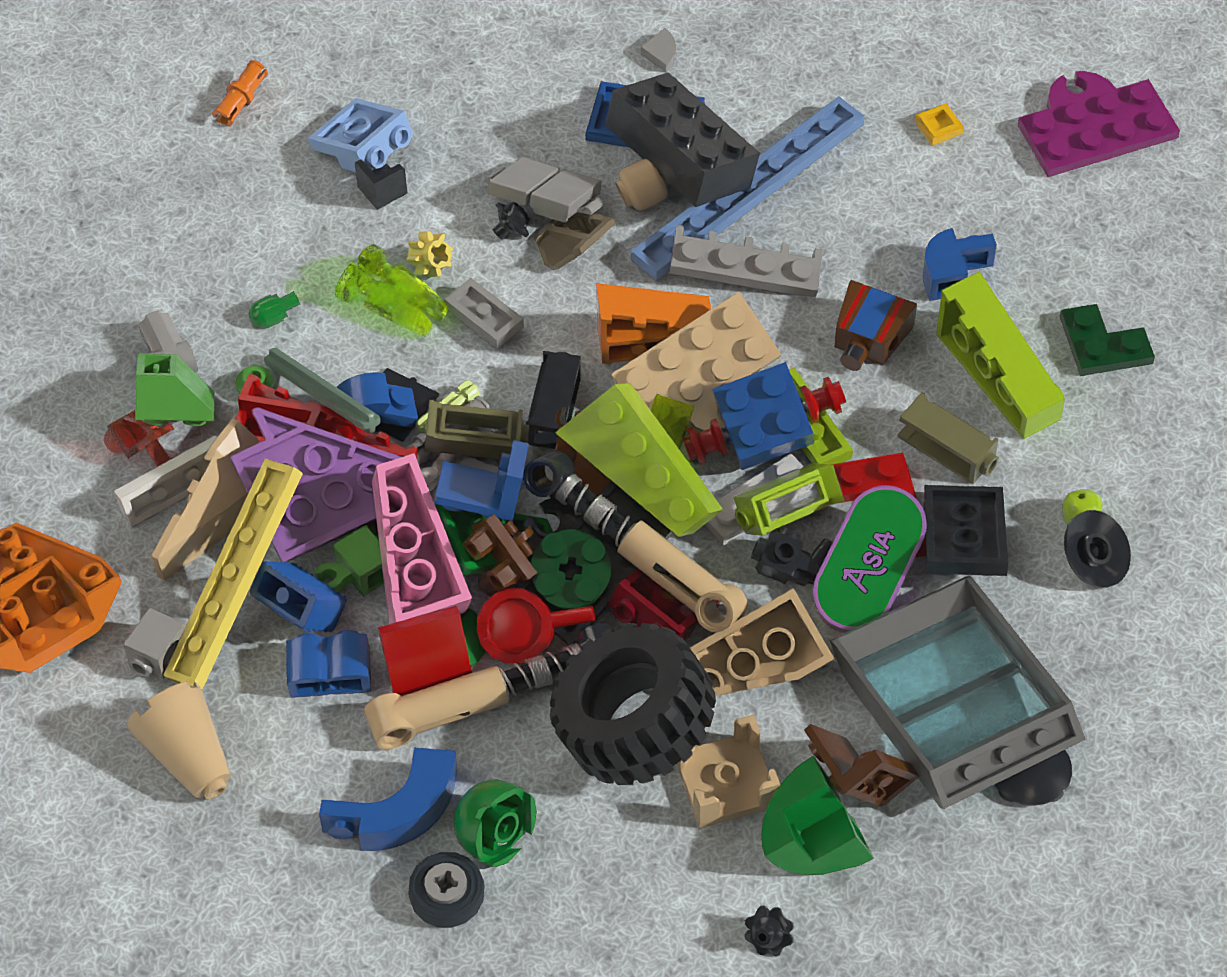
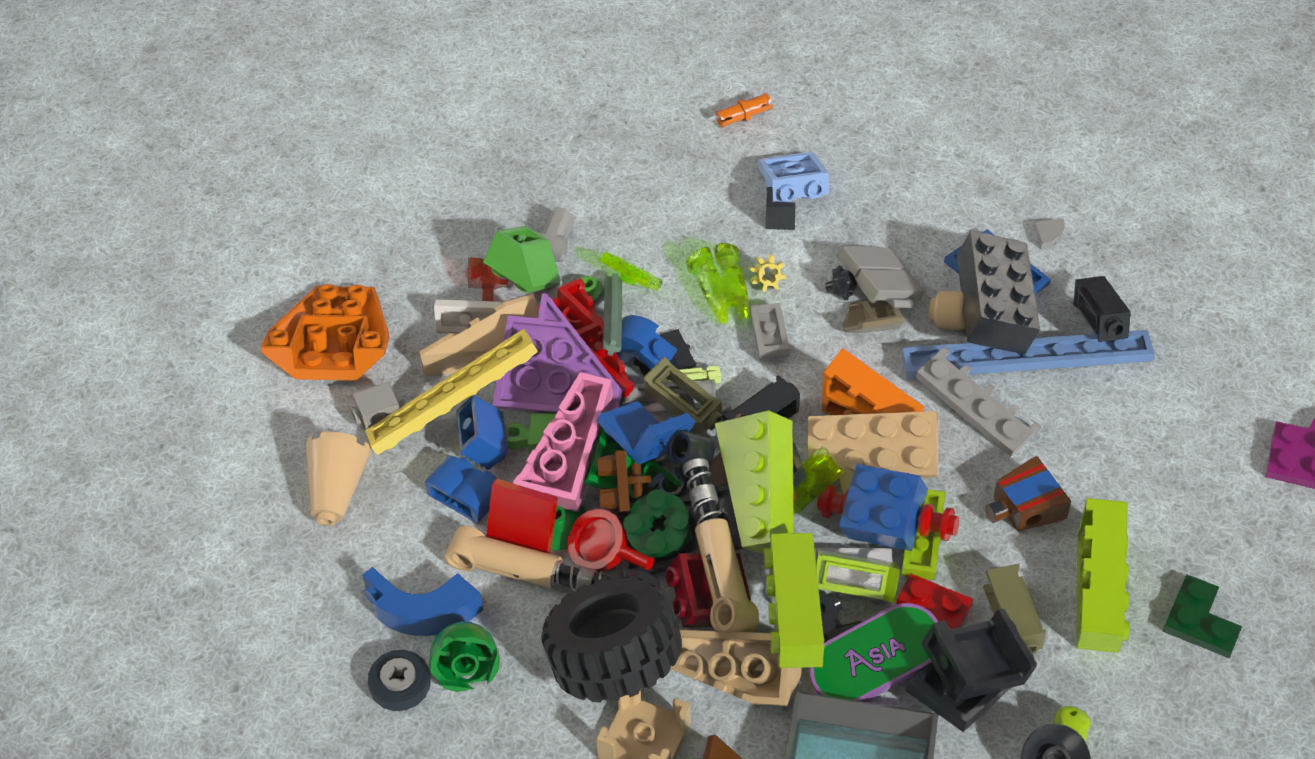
camera: 40 degrees right, 5 degrees down
(271, 309) = (639, 249): green cylinder -> none
(286, 338) = (631, 273): none -> clear neon green plate
(779, 552) = (795, 600): none -> lime wedge
(784, 97) = (1102, 308): none -> black window
(939, 124) = (1211, 392): yellow tile -> none
(951, 258) = (1129, 484): blue brick -> none
(967, 496) = (979, 656): none -> black panel

